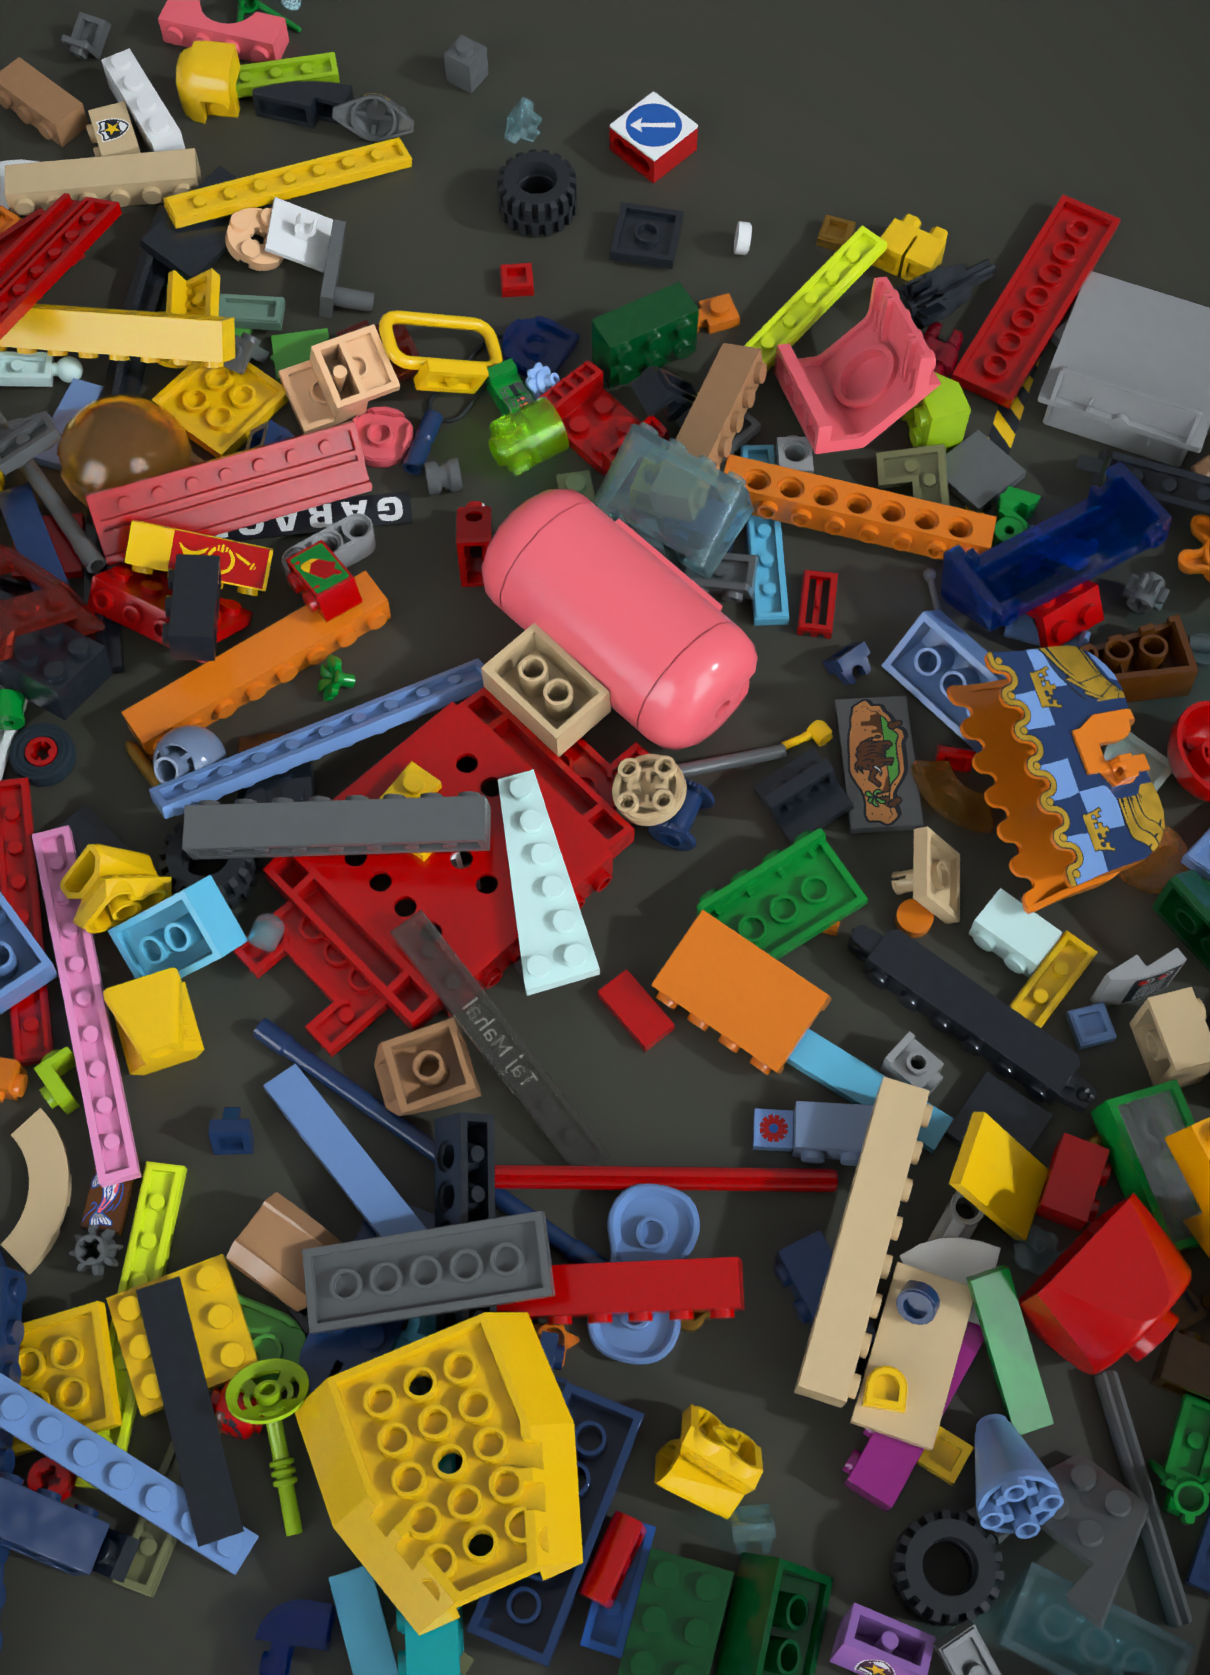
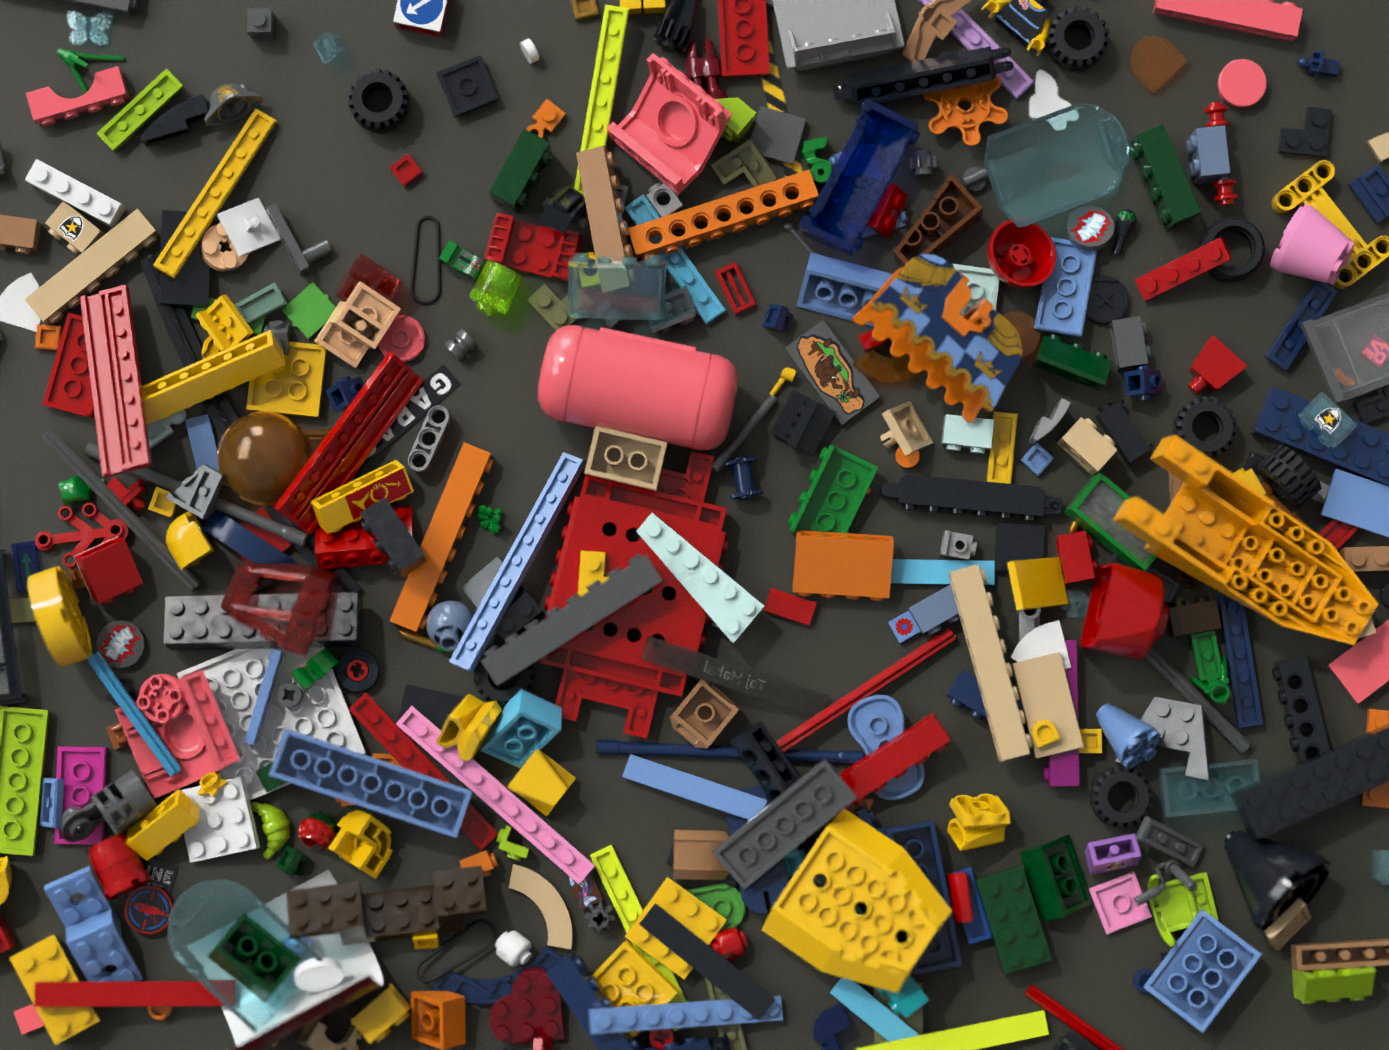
camera: 35 degrees left, 20 degrees up
(208, 80) = (105, 149): yellow brick -> none
(231, 1133) = (624, 813): dark blue tile -> none
(266, 932) = (568, 696): clear light blue piece -> none
(270, 1406) = (747, 935): lime dish -> none
(323, 581) = (449, 468): brick -> none
(422, 443) = (429, 323): dark blue piece -> none
(441, 373) = (418, 275): yellow bar -> none
(473, 528) = (516, 383): red torso -> none
(538, 341) = (453, 214): clear blue tile -> none
(540, 380) = (476, 242): light blue plant -> none
(649, 789) = (720, 480): tan tile -> none
(752, 1524) = (1016, 835): clear light blue tile -> none
(917, 1302) = (1035, 679): dark blue tile -> none
(1009, 1349) = (1092, 670): tile -> none

